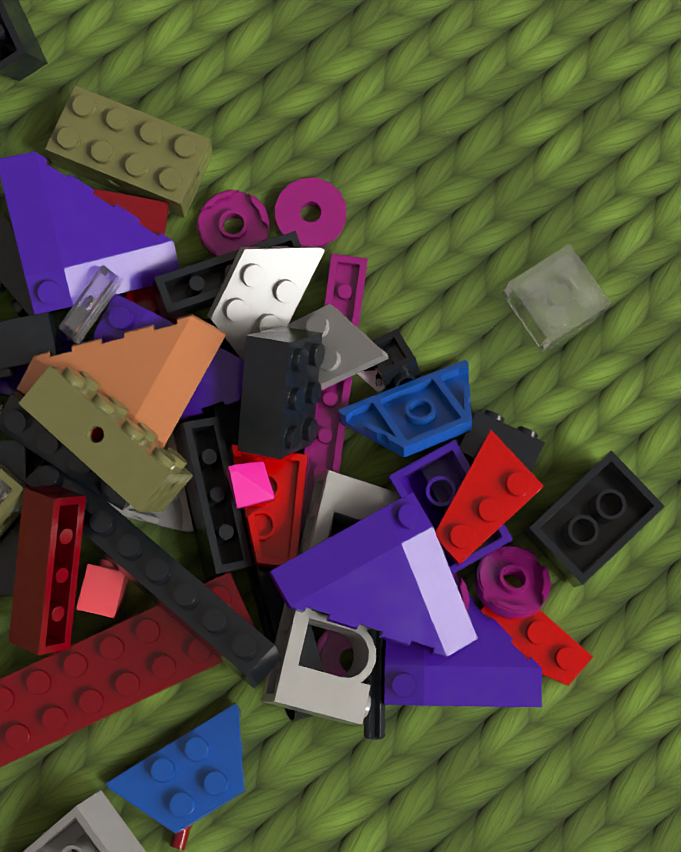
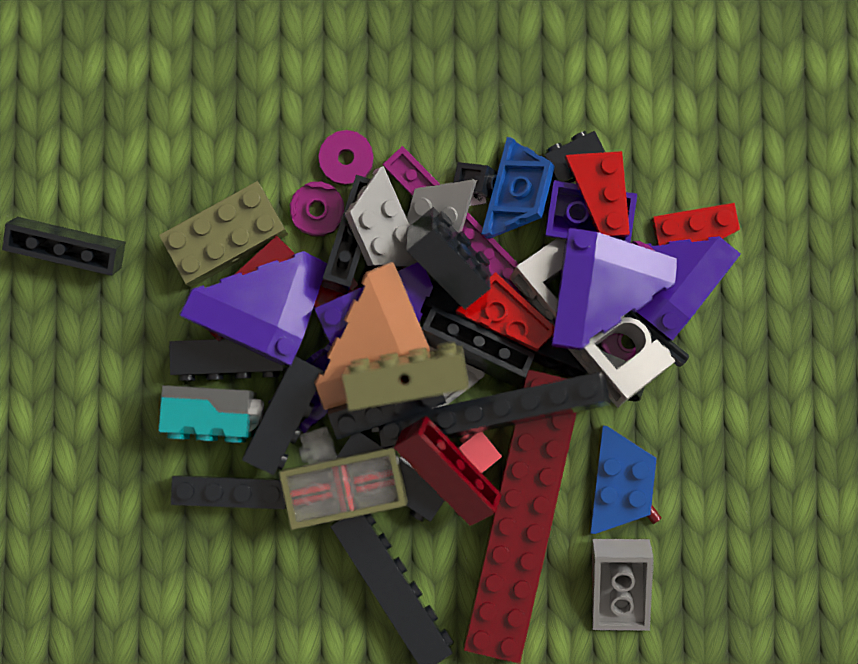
camera: 45 degrees left, 5 degrees up
(91, 304) = (311, 326): clear slope -> none
(249, 484) = (489, 318): dark pink slope -> none
(503, 598) = (660, 227): magenta tile -> none
(556, 298) = (514, 55): clear brick -> none
(593, 519) = (659, 139): black brick -> none

